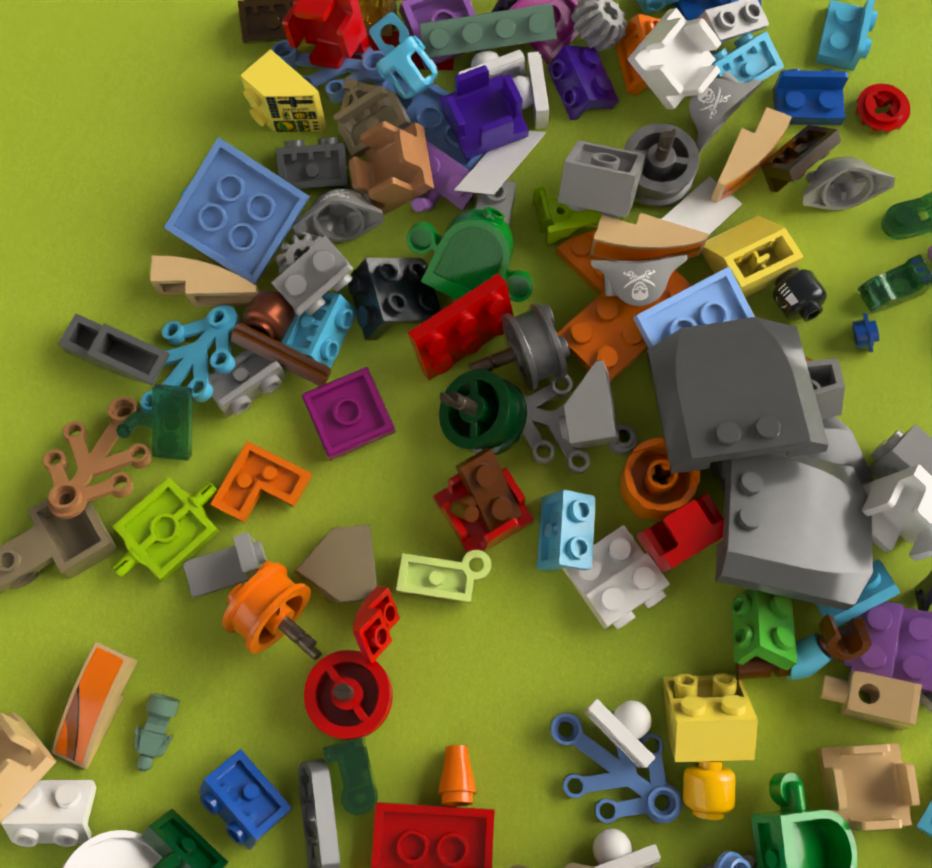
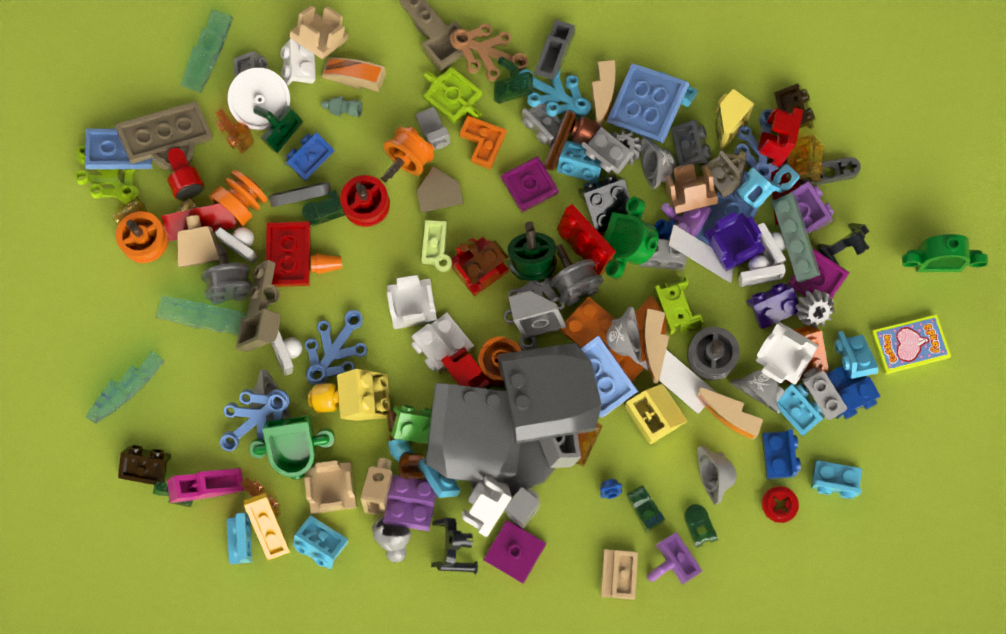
camera: 90 degrees right, 0 degrees up
(373, 623) = (404, 207): red slope -> none
(440, 220) = (664, 228): none -> blue plate
(542, 624) = (411, 302): none -> white panel
(566, 531) = (465, 311): medium azure bracket -> none
(600, 179) = (691, 311): light grey slope -> none
(624, 728) = (354, 347): white tile -> none
(799, 155) = (730, 442): dark brown bracket -> none
(799, 294) = (632, 446): black head -> none

